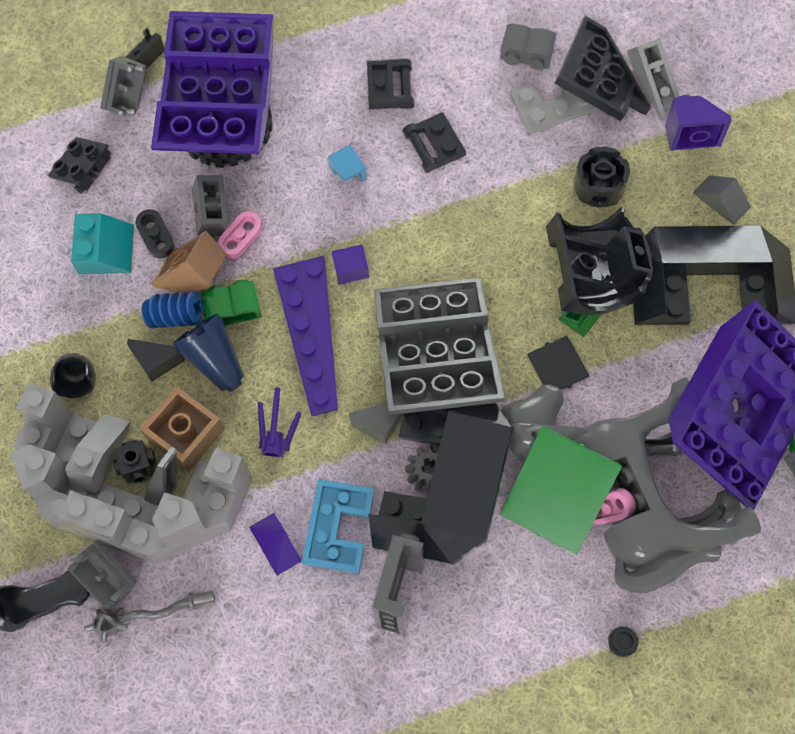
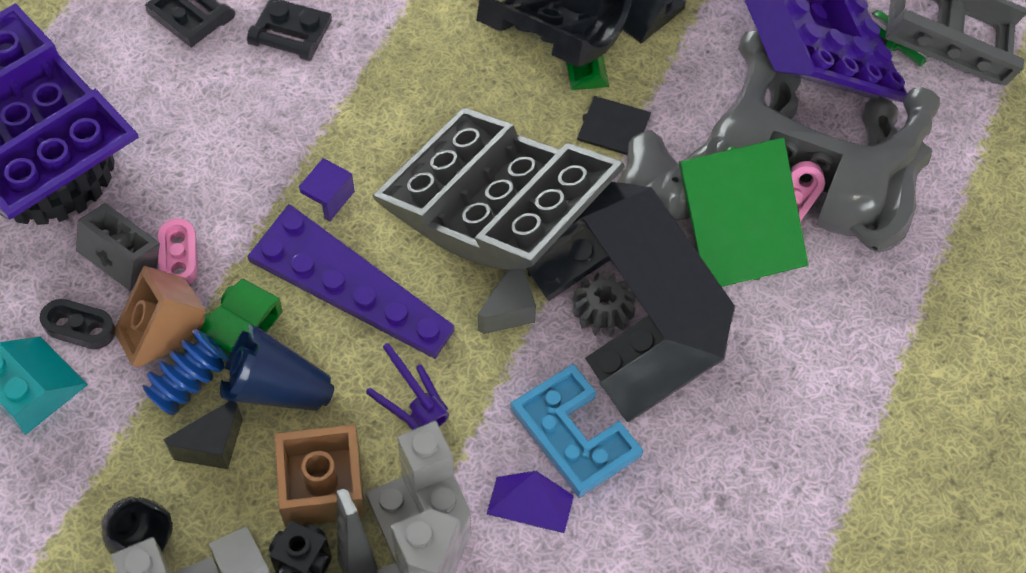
camera: 50 degrees left, 10 degrees down
(347, 164) = (225, 102): dark azure panel -> none
(403, 554) = (724, 430): dark grey window -> none
(623, 641) = (927, 299): black plate -> none

